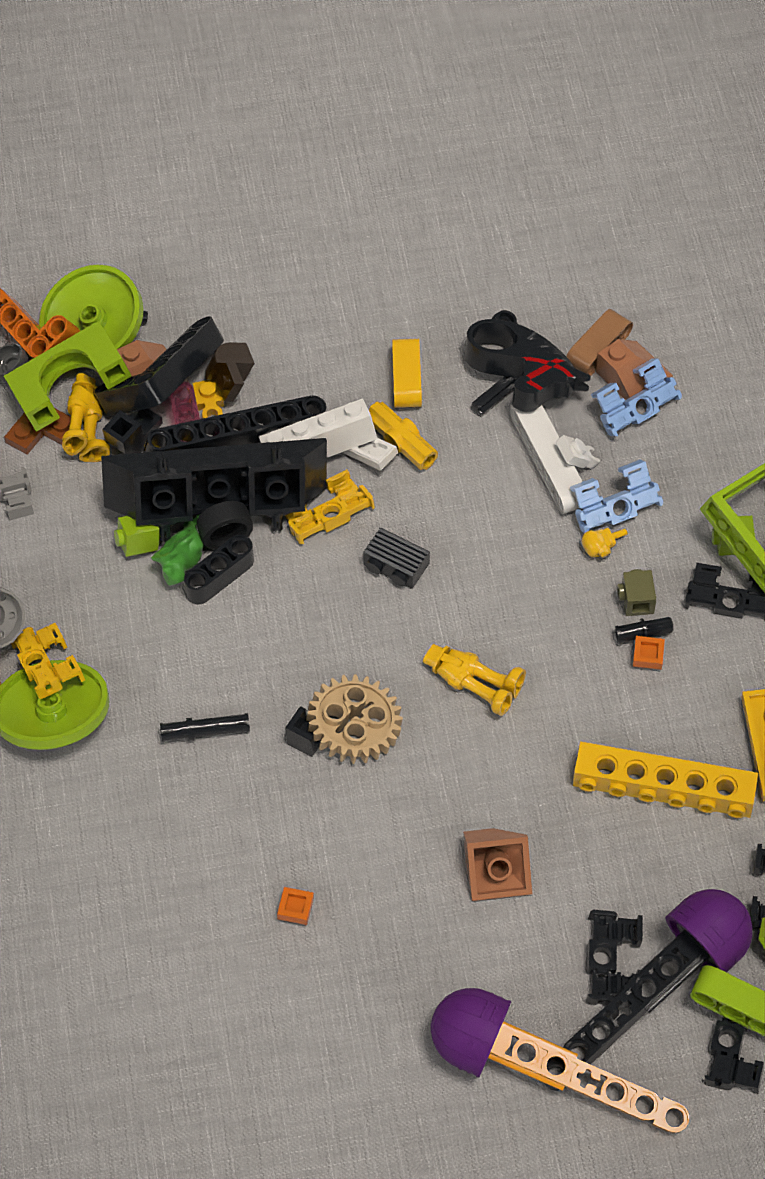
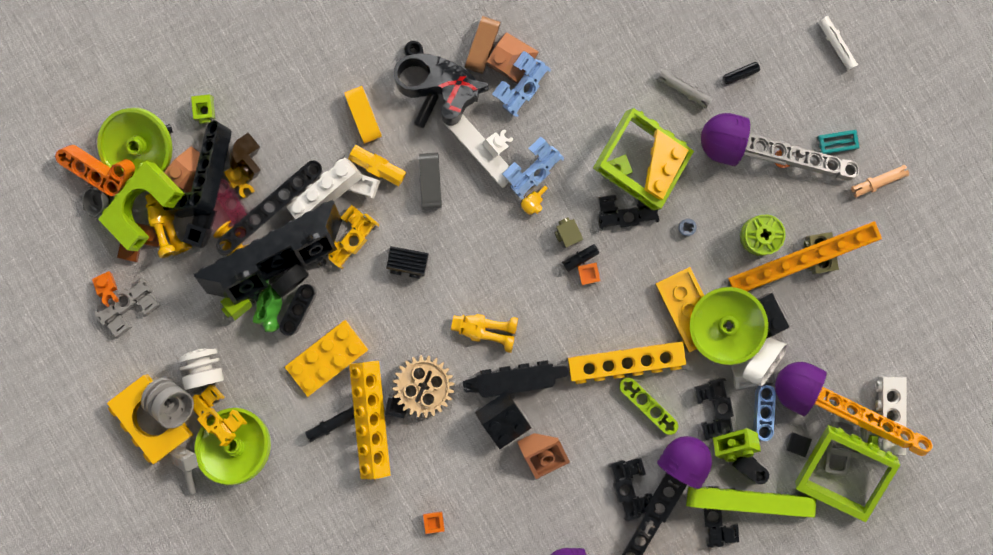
camera: 20 degrees left, 30 degrees up
(53, 591) = (200, 368): none -> white wheel
(198, 307) = (200, 102): none -> lime brick
(231, 645) = (326, 358): none -> yellow plate
(259, 734) = (369, 420): none -> yellow brick
(454, 791) = (503, 420): none -> black brick
(467, 474) = (430, 180): none -> dark grey beam
(493, 753) = (515, 380): none -> black hinge
(673, 855) = (646, 408): none -> lime beam

